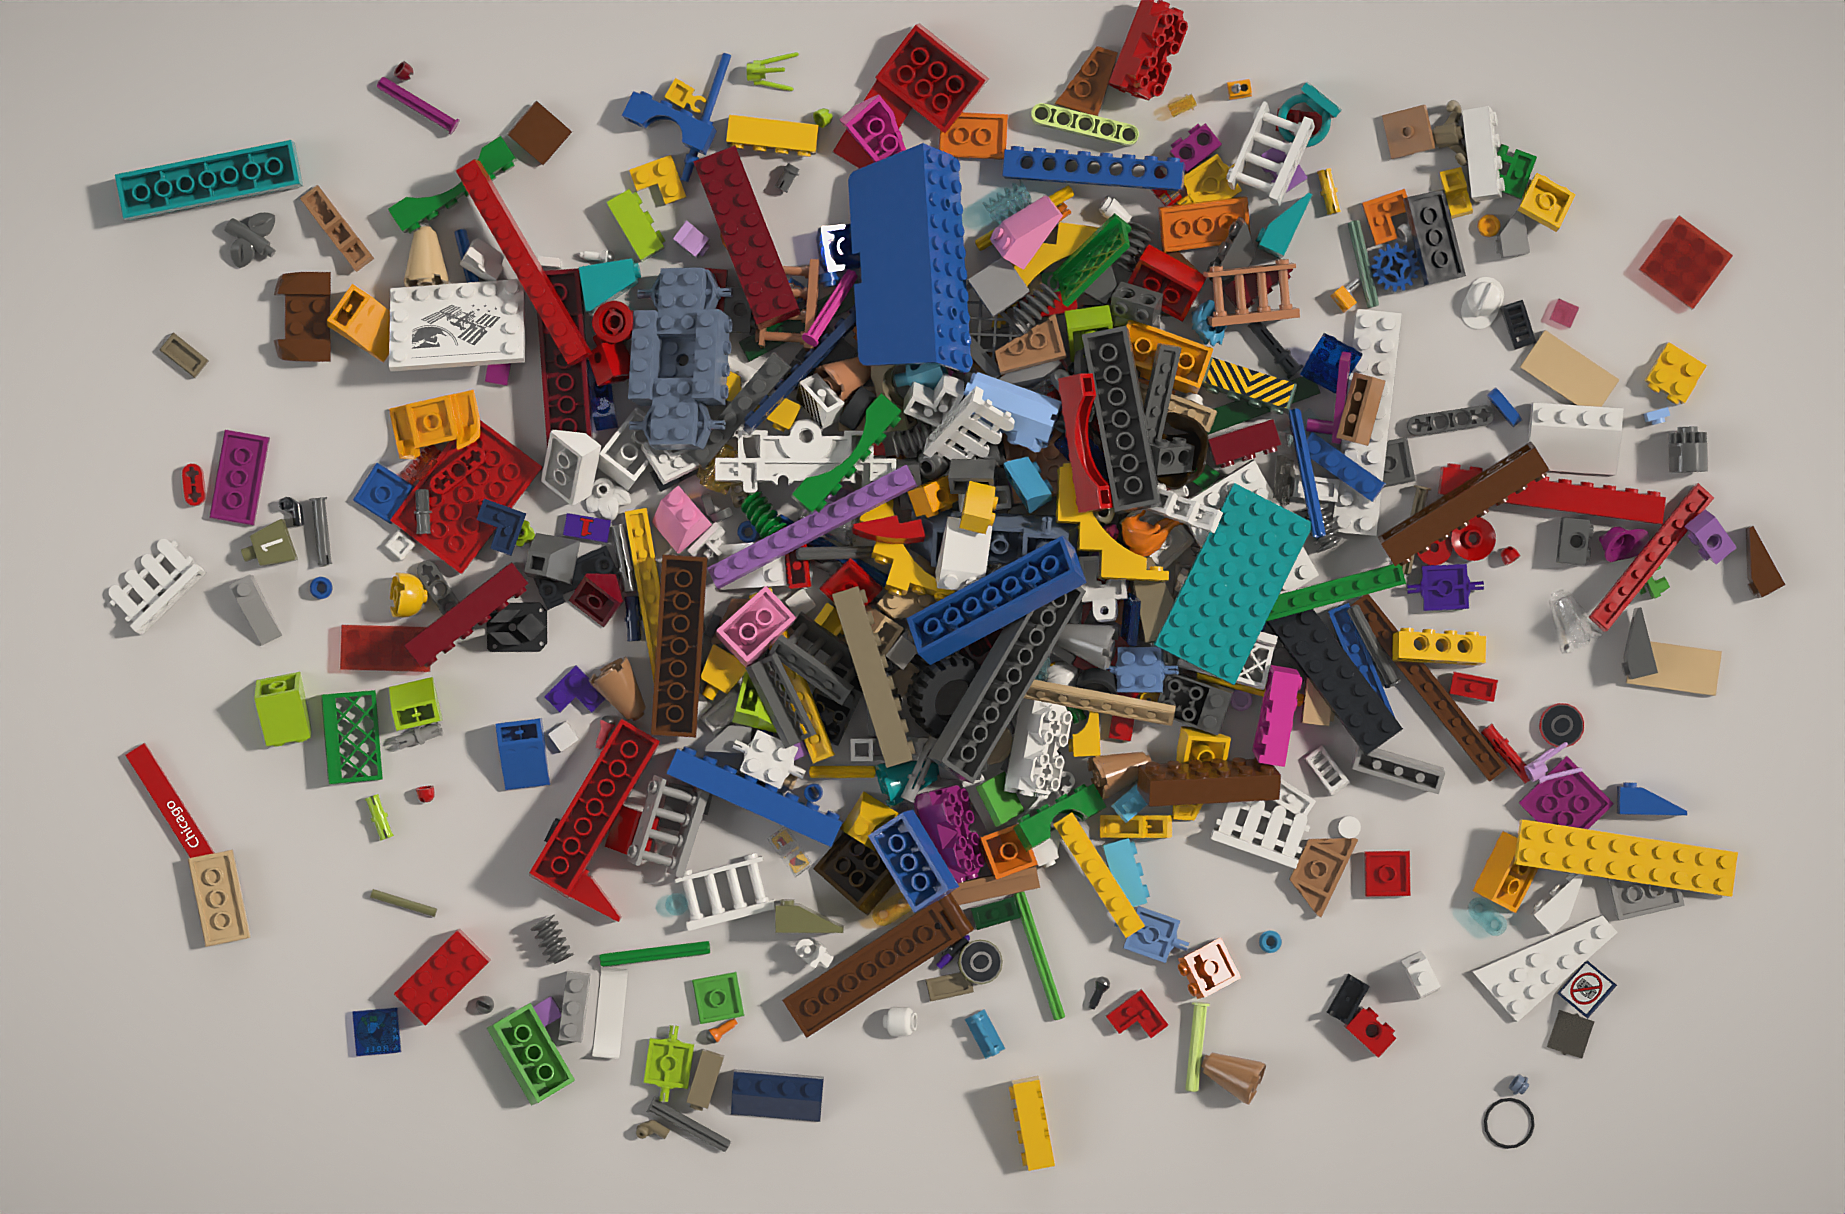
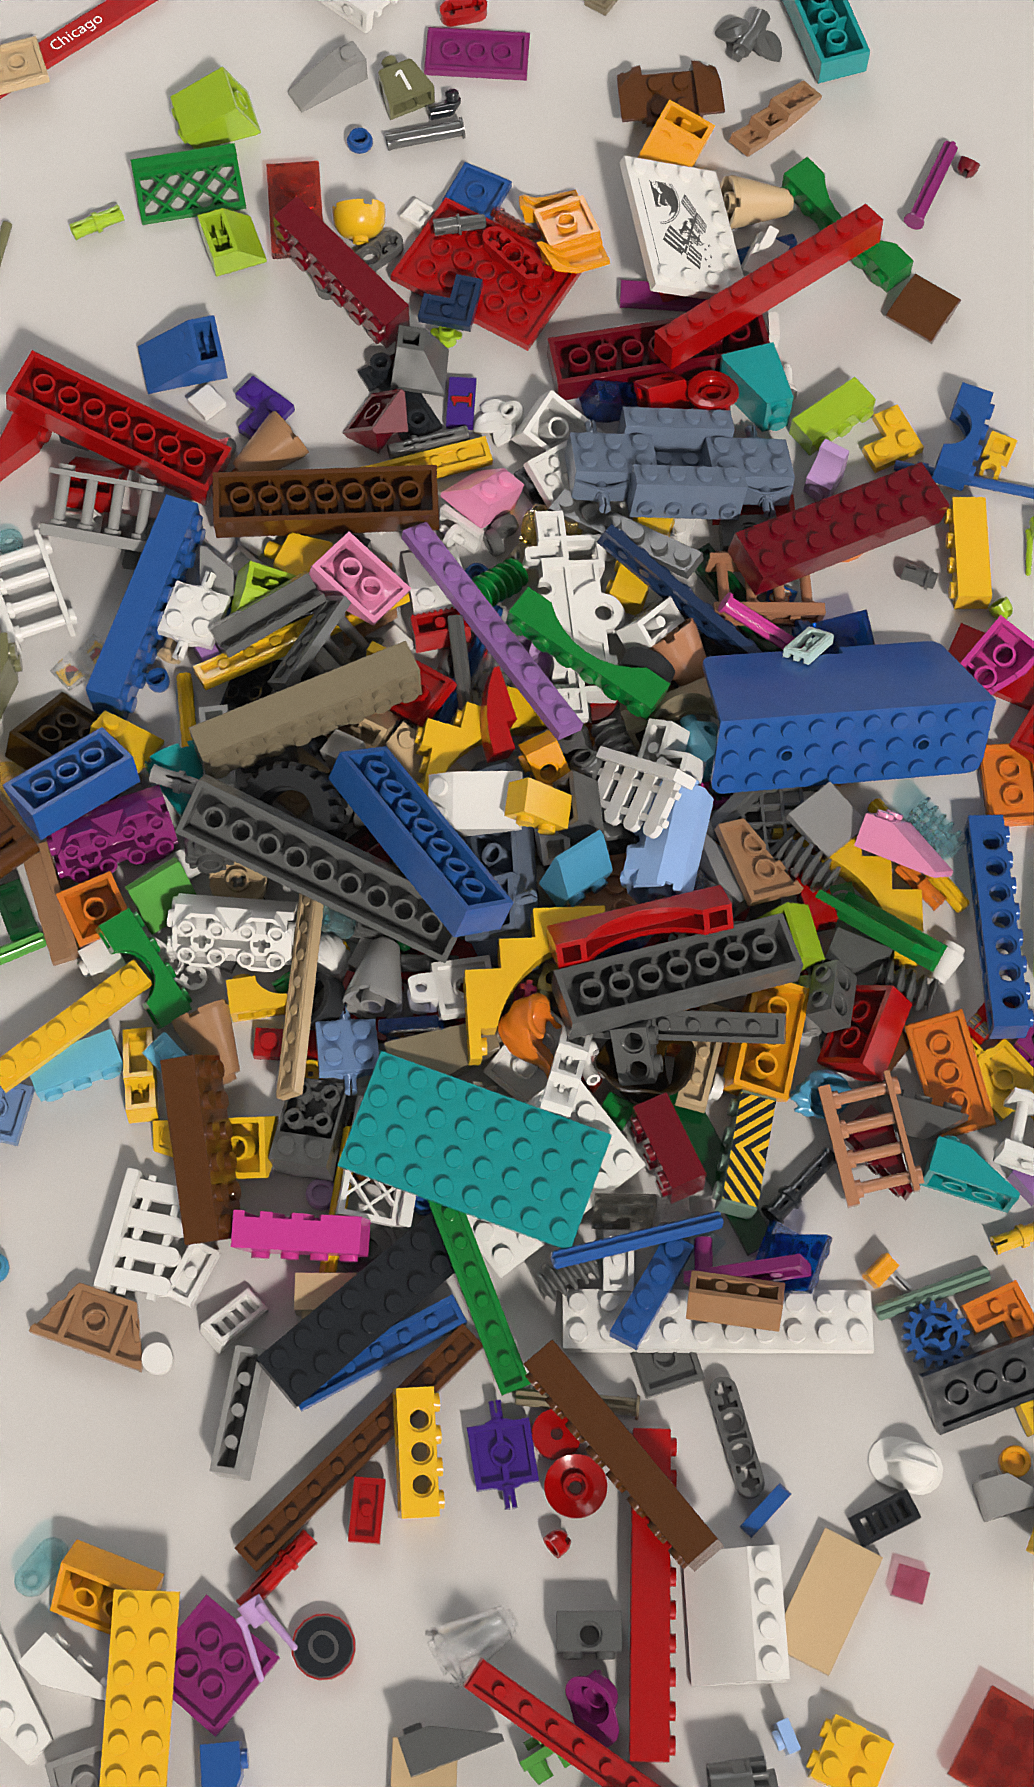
camera: 85 degrees right, 20 degrees down
(419, 735) = (196, 252): light grey pin -> none
(425, 793) = (127, 265): red hinge -> none
(529, 632) = (333, 341): black piece -> none
(571, 465) = (533, 365): white slope -> none
(633, 618) = (356, 459): dark blue pin -> none
(863, 287) = (813, 647): none -> light aqua tile
(1373, 646) = (410, 1360): dark grey axle -> none
(1387, 873) = (95, 1418): red plate -> none

